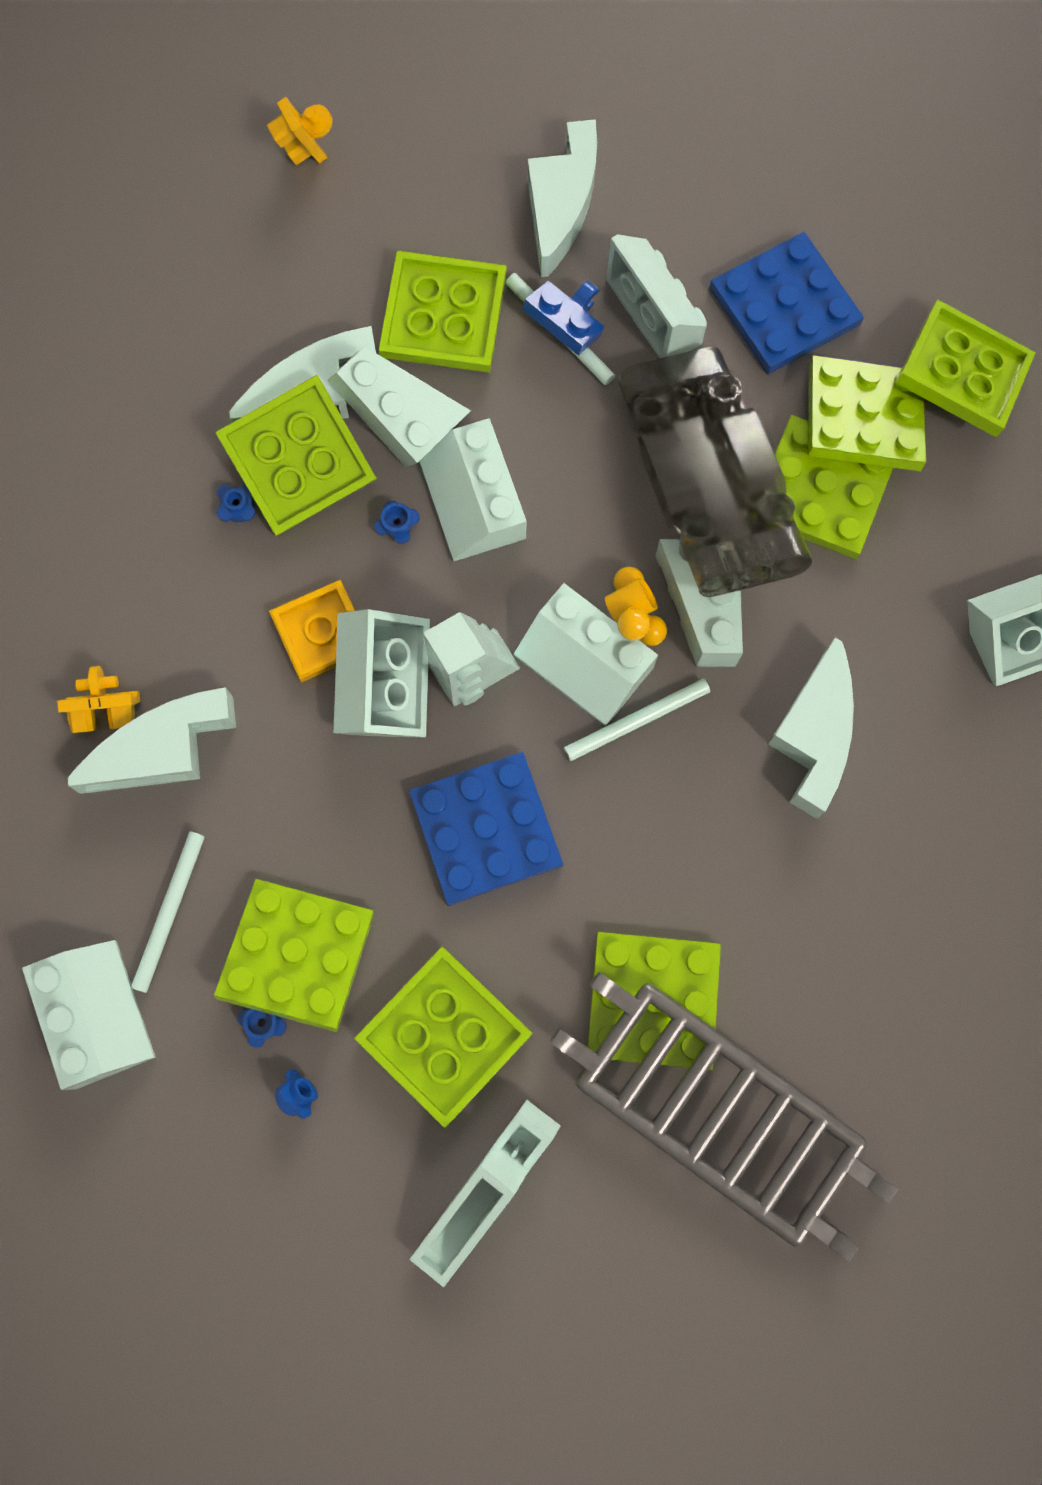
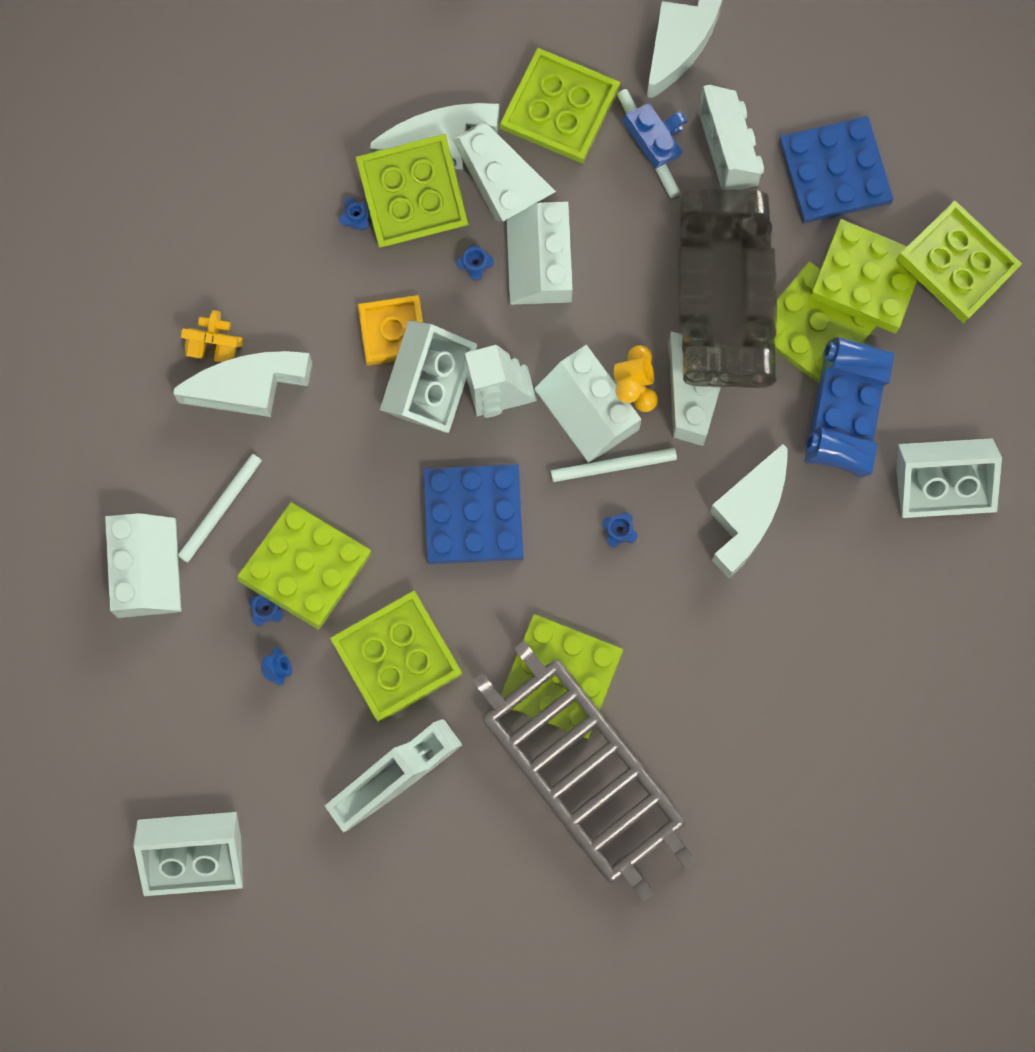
camera: 20 degrees right, 0 degrees up
(251, 1377) = (189, 853): none -> light aqua slope
(672, 785) = (623, 521): none -> blue plate
(894, 571) = (848, 406): none -> blue piece

